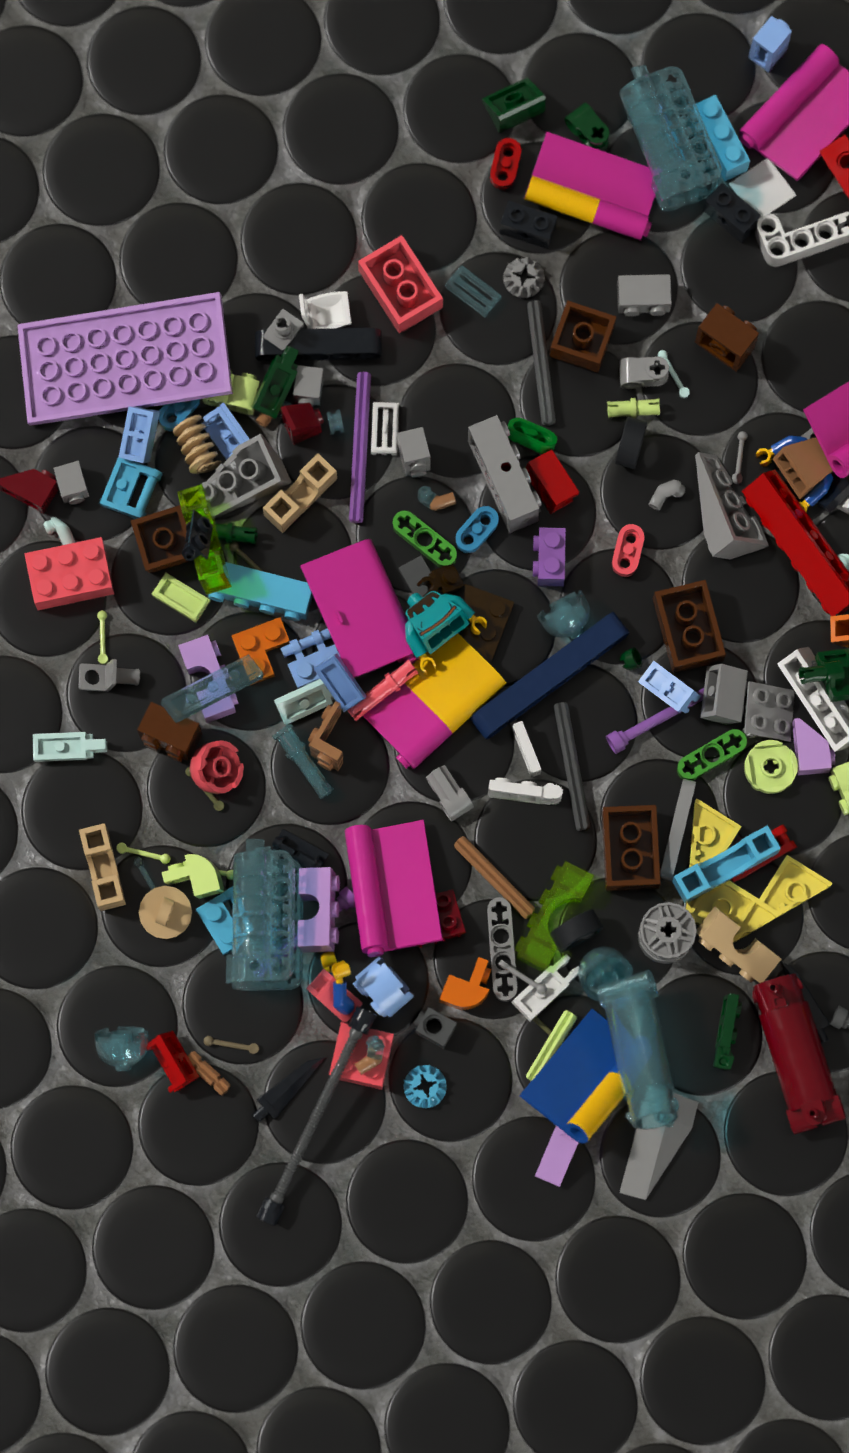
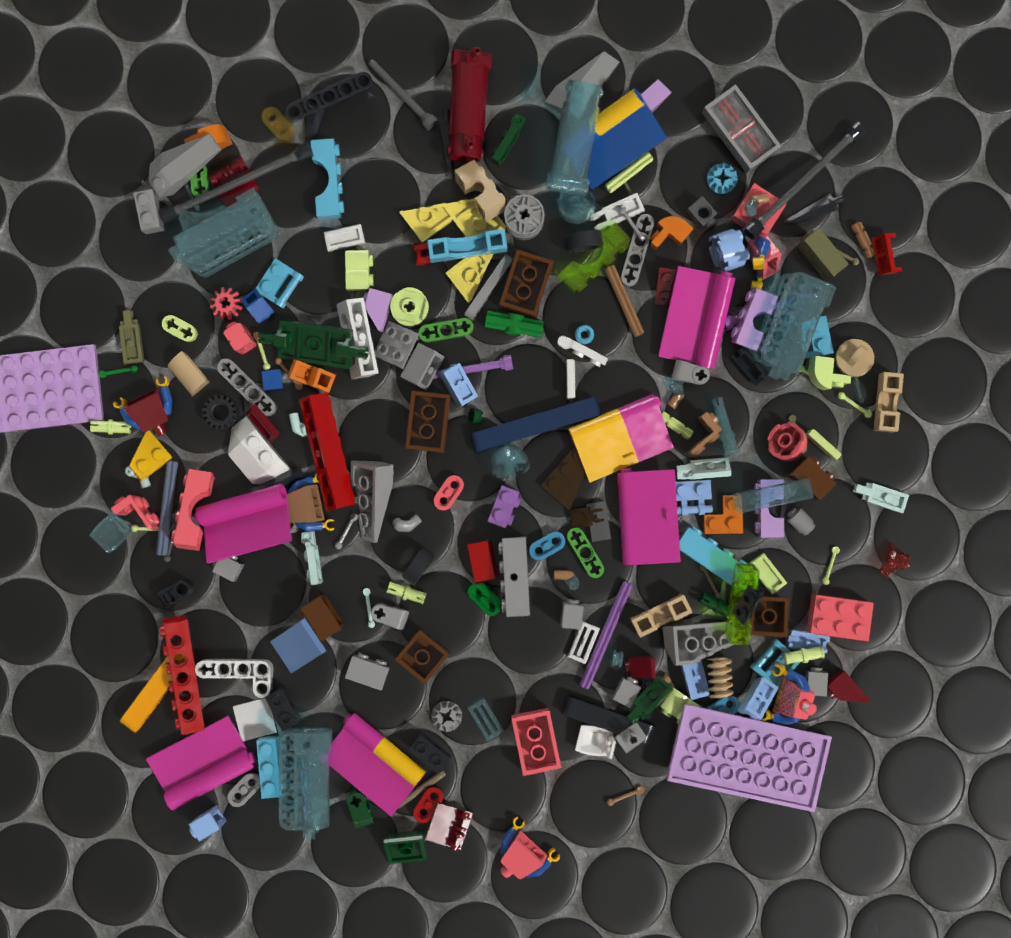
camera: 160 degrees left, 10 degrees up
(22, 669) = (894, 561): none -> clear red animal
(61, 528) = (833, 651): light aqua arm -> none
(94, 449) = (793, 698): none -> torso
(99, 508) = (803, 655): none -> yellowish green pin
(108, 676) = (836, 535): light grey bracket -> none
(111, 529) = (802, 639): none -> light blue hinge
(121, 1047) = (916, 277): clear light blue cylinder -> none
(162, 677) = (800, 521): none -> light grey brick
(167, 784) = (823, 444): none -> yellowish green tile
(246, 275) = (640, 790): none -> medium nougat hinge
(258, 1026) = (822, 254): none -> olive brick
(340, 682) = (682, 469): medium blue tile -> none
(364, 142) = (522, 855): none -> coral torso
(366, 741) = (677, 426): none -> yellowish green axle
(377, 812) = (686, 372): none -> light grey piece
(380, 783) = (678, 393): none -> arm
(383, 689) = (648, 457): coral pin -> none
(424, 1155) = (741, 129): none -> brick
(435, 621) = (602, 487): teal torso -> none
(452, 798) = (633, 363): light grey piece -> none
(469, 146) = (448, 826): none -> hinge
(519, 183) = (423, 786): none -> dark tan bar
(530, 806) = (584, 328): none -> medium azure plate
(541, 362) = (457, 649): dark grey axle -> none
(572, 766) = (543, 357): dark grey axle -> none
(626, 793) = (514, 324): none -> green piece
(740, 102) = (245, 789): none -> light grey plate
(743, 291) = (298, 646): none -> medium blue tile
(768, 407) = (312, 557): none -> light aqua hinge

